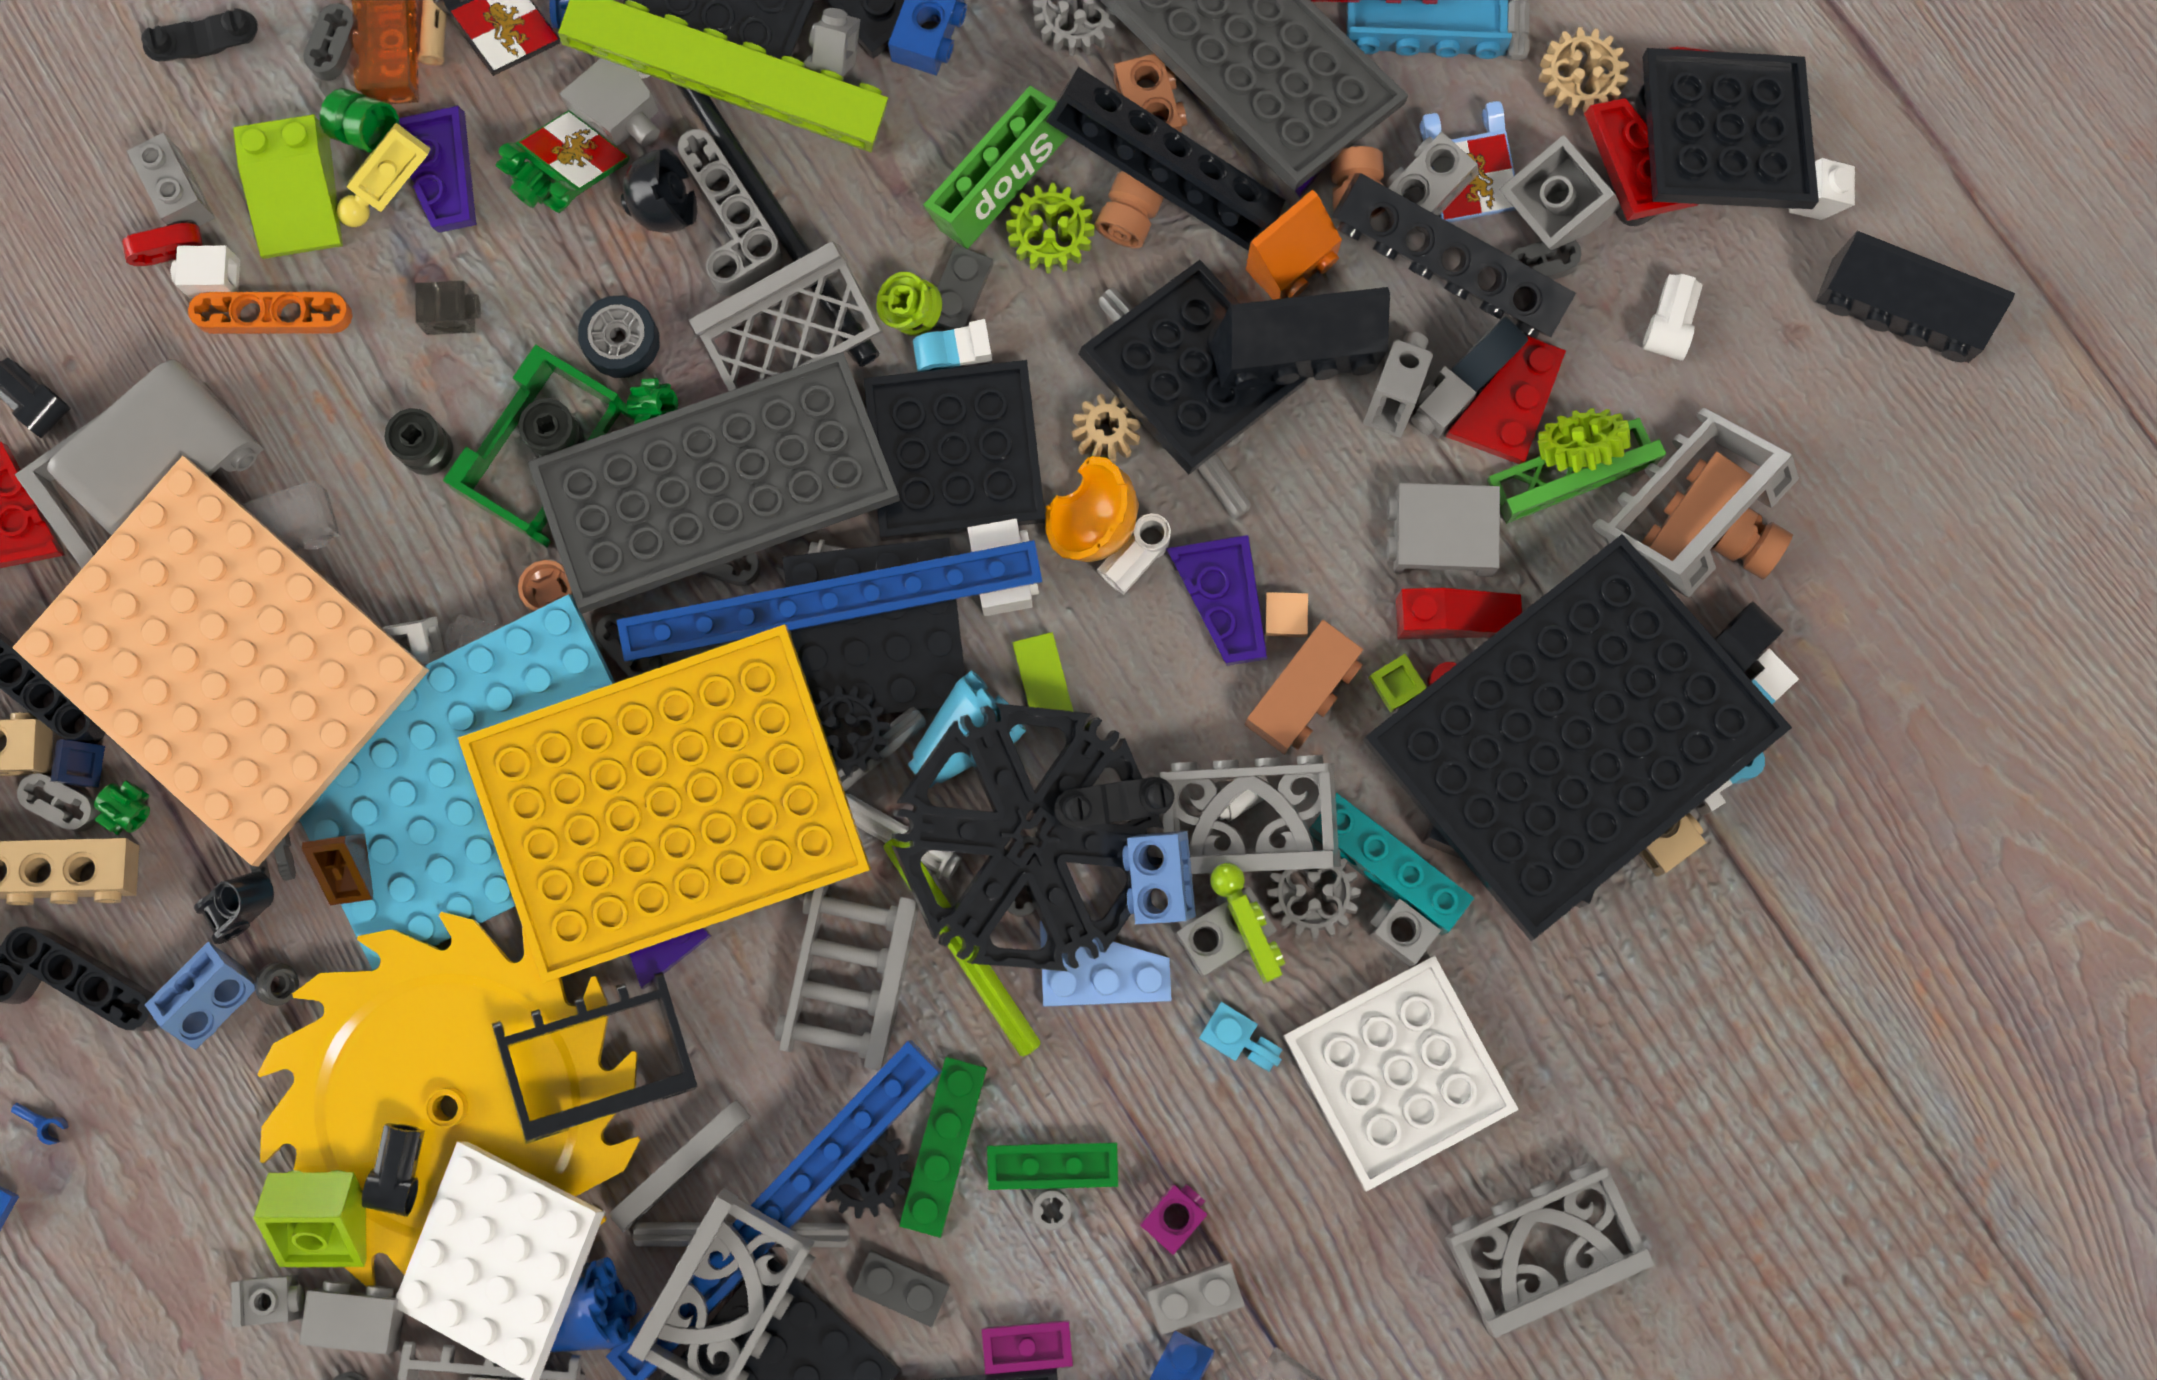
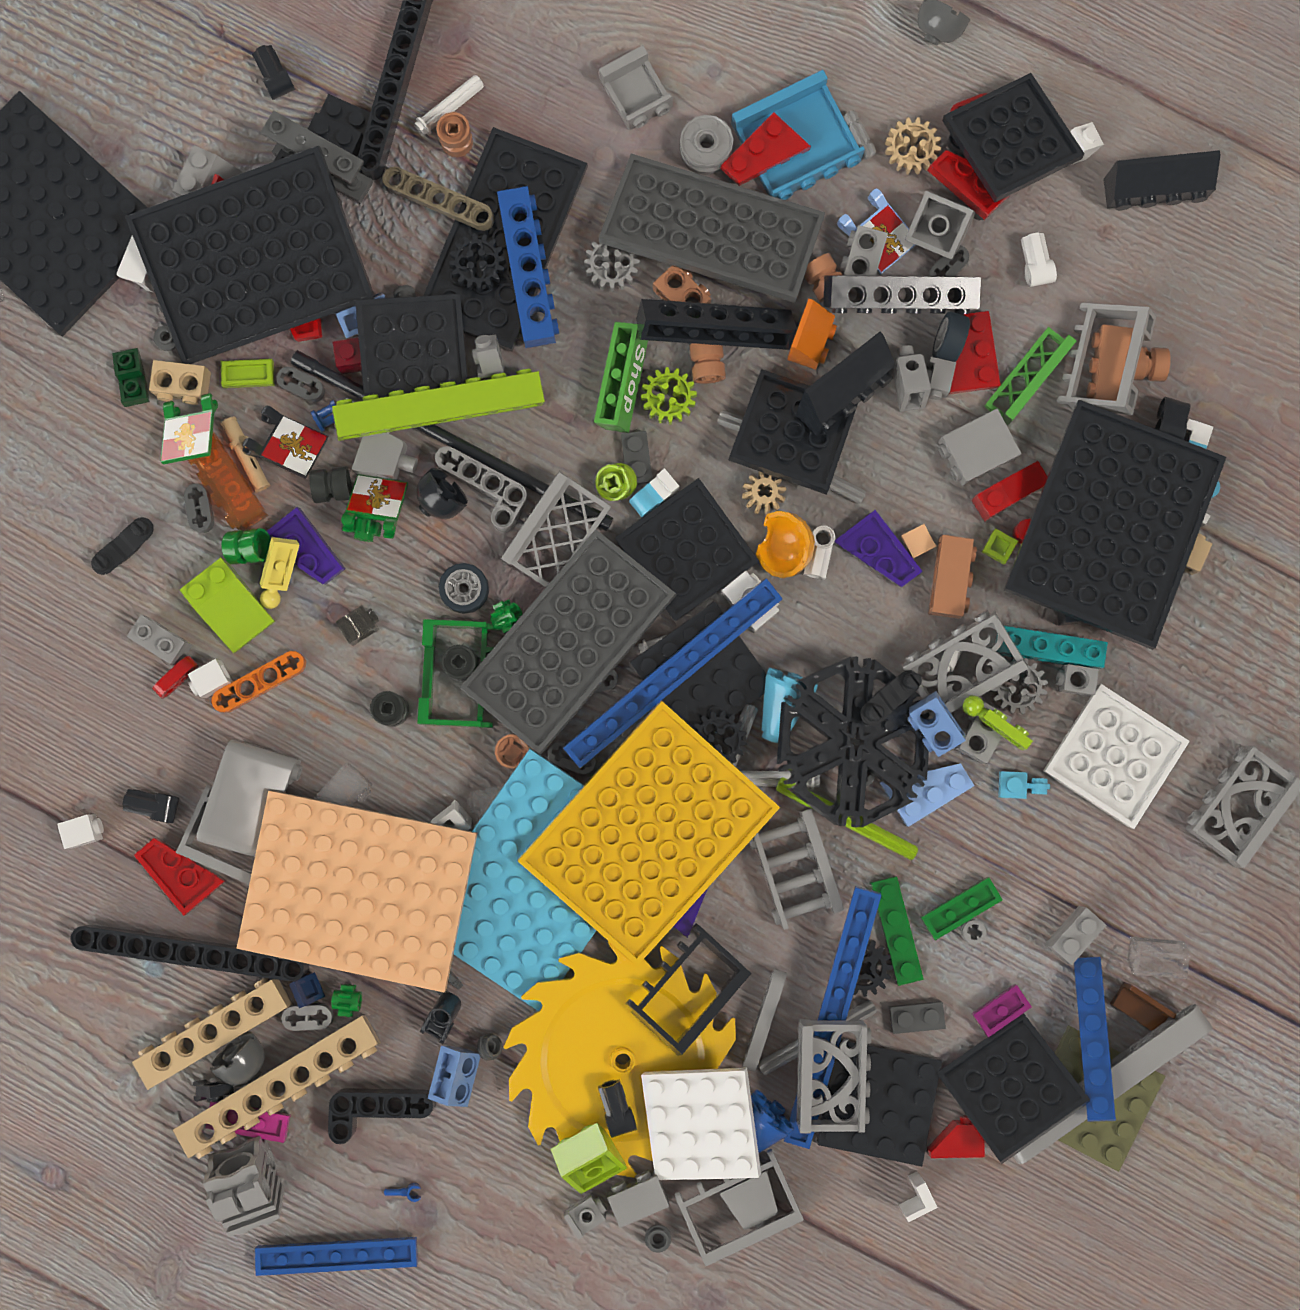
camera: 30 degrees left, 5 degrees up
(341, 868) = (492, 965): reddish brown slope -> none
(515, 100) = (330, 484): none -> pearl dark grey wheel
(1042, 672) = (806, 648): lime tile -> none
(1170, 1237) = (1046, 910): magenta brick -> none
(1584, 440) = (1028, 357): lime gear -> none

